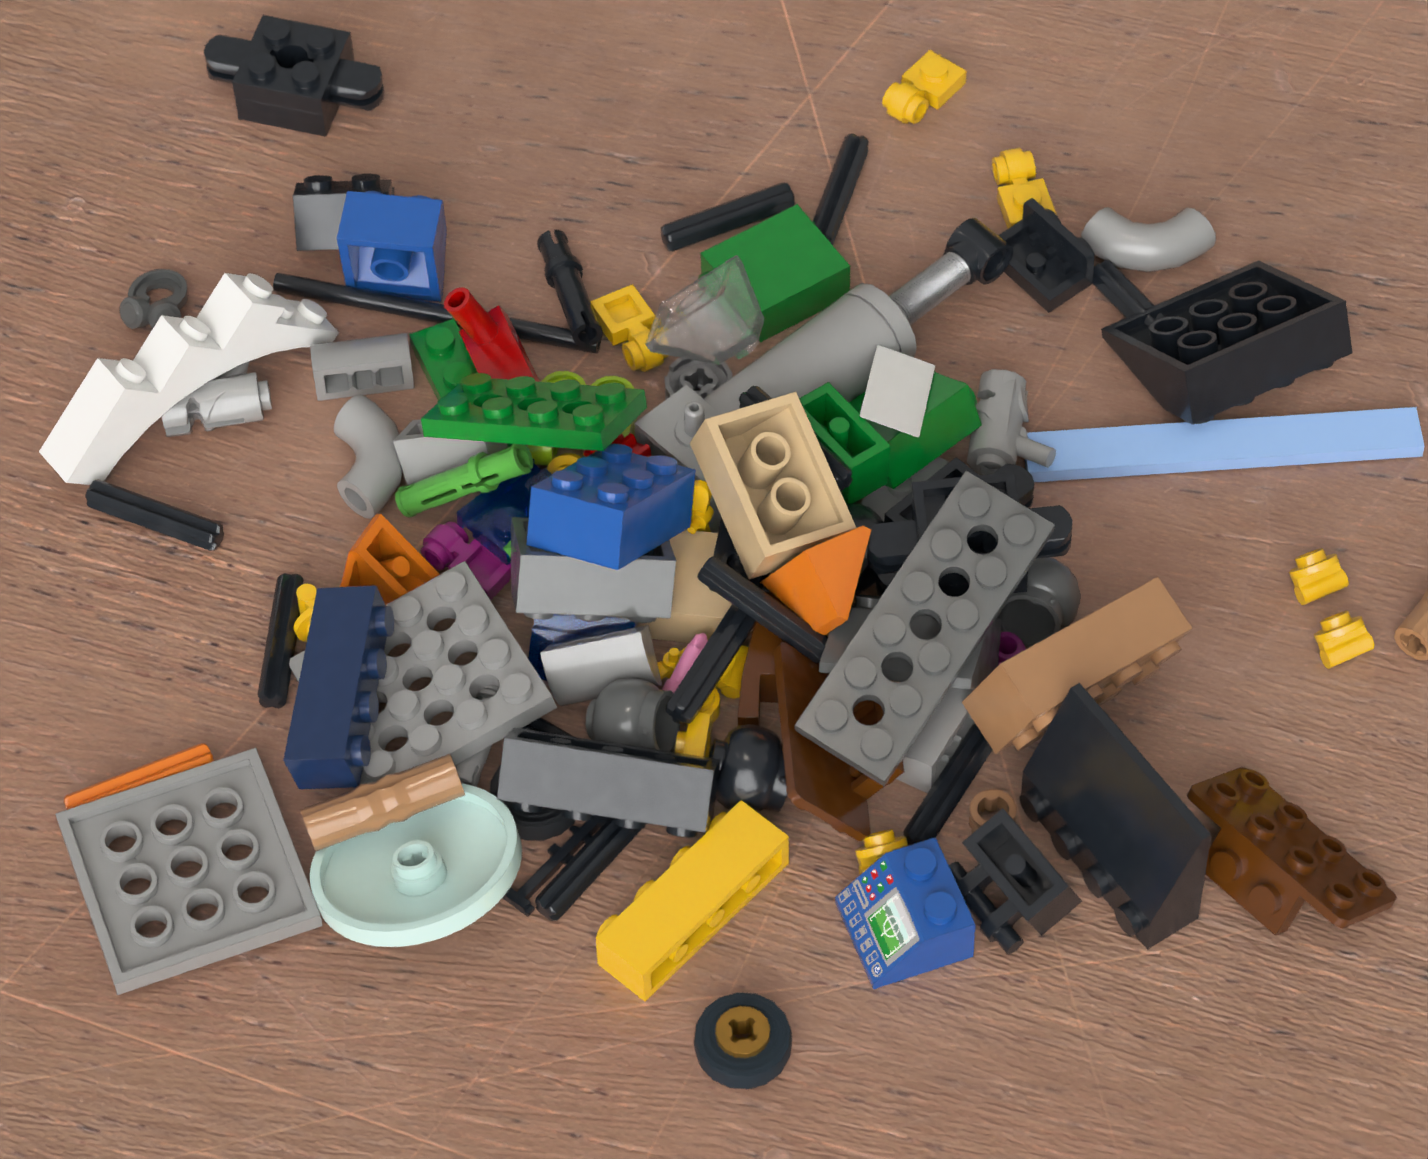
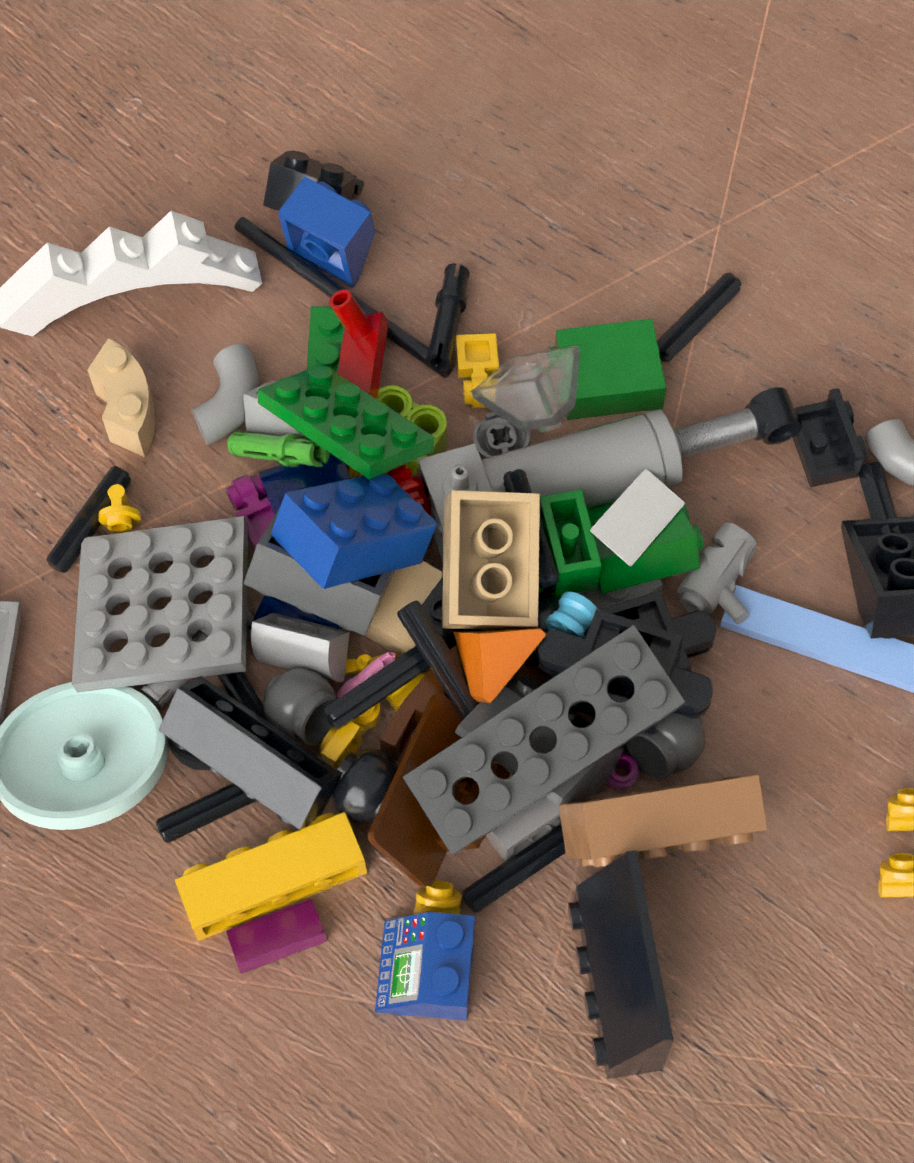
camera: 25 degrees right, 10 degrees up
(137, 311) = (145, 217): dark grey piece -> none
(154, 515) = (53, 378): black axle -> none
(221, 402) = (145, 307): light grey piece -> none
(255, 497) = (129, 407): none -> tan brick
(293, 74) = (317, 67): black brick -> none
(338, 688) = (90, 584): dark blue brick -> none
(362, 366) = (263, 318): light grey brick -> none
(382, 802) = (77, 692): medium nougat axle -> none
(386, 560) = (182, 496): orange slope -> none
(560, 856) = (200, 789): black piece -> none
(701, 508) = (435, 555): yellow piece -> none
(727, 216) = (601, 304): black axle -> none
(729, 957) = (276, 936): none -> magenta slope
(743, 1061) = (256, 1029): black wheel -> none
(884, 503) = (573, 614): none -> medium azure wheel
(925, 83) = (815, 251): yellow plate -> none
(990, 800) = (536, 919): medium nougat bush -> none
(1014, 170) = (843, 353): yellow plate -> none
(1023, 876) = (529, 974): black brick -> none
(1279, 859) = (753, 1054): reddish brown bracket -> none

